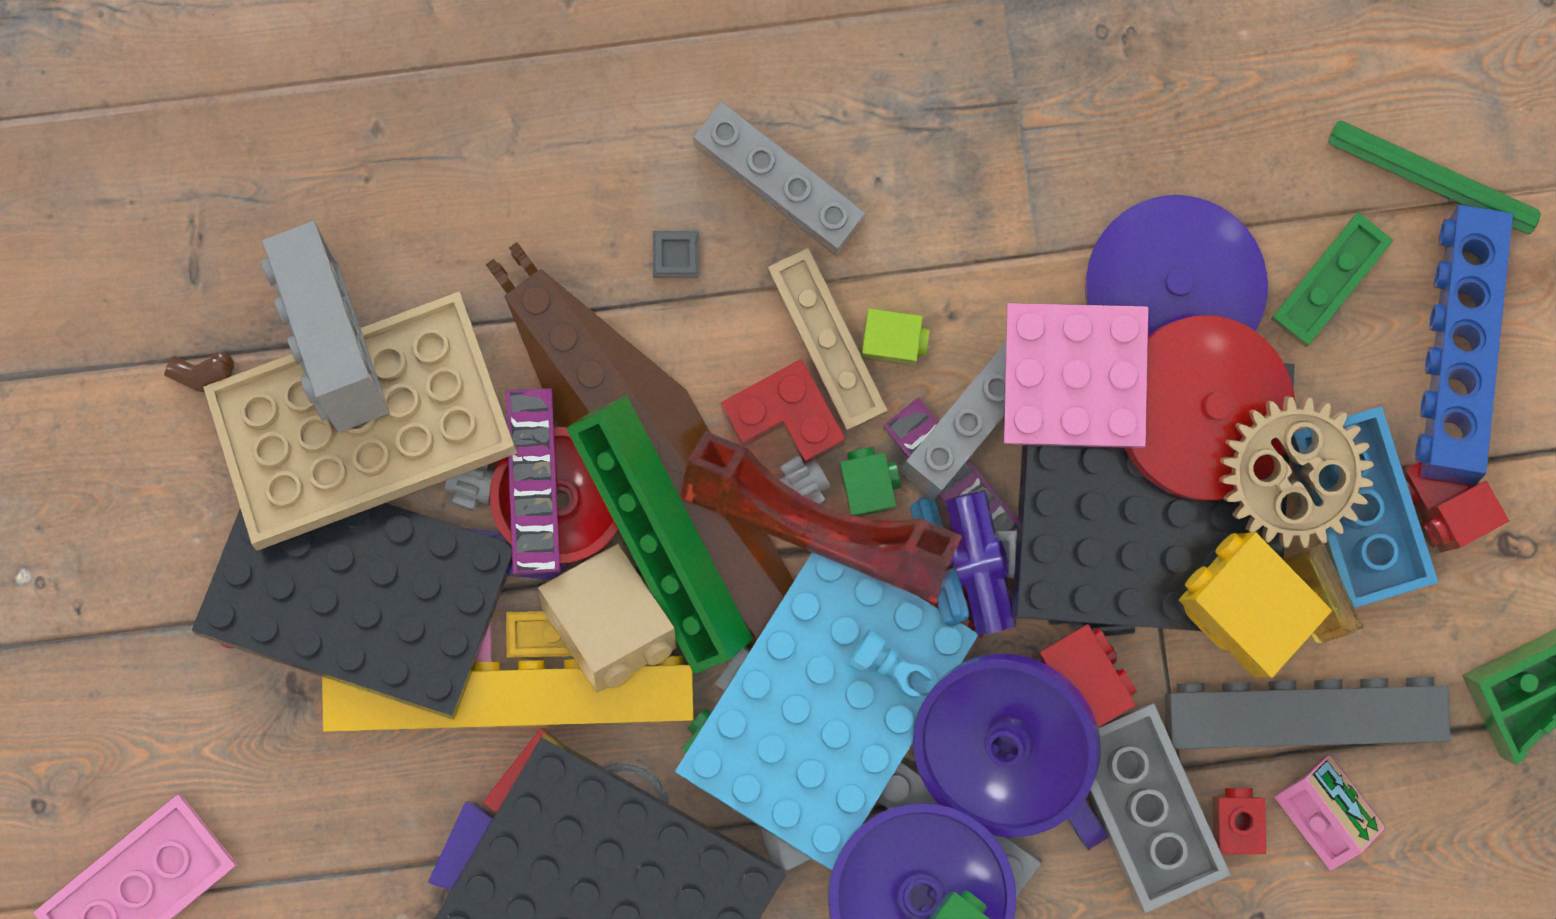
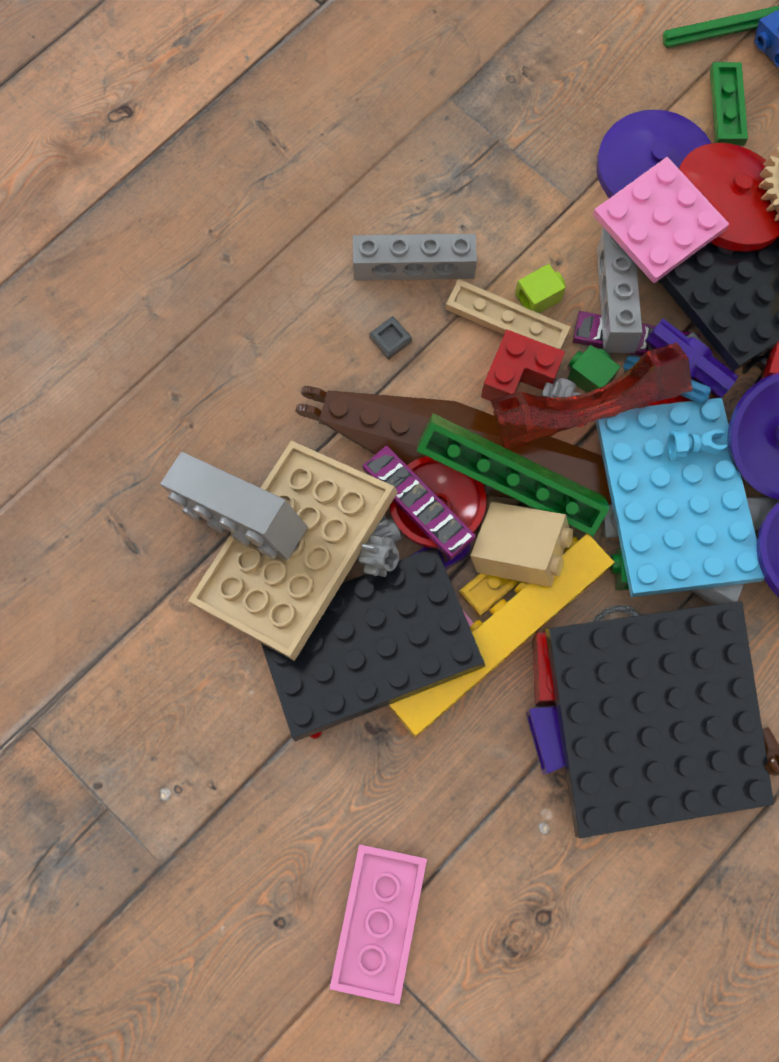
camera: 40 degrees left, 10 degrees down
(202, 374) = (180, 598): reddish brown arm -> none
(438, 508) = (378, 556): none -> light grey gear

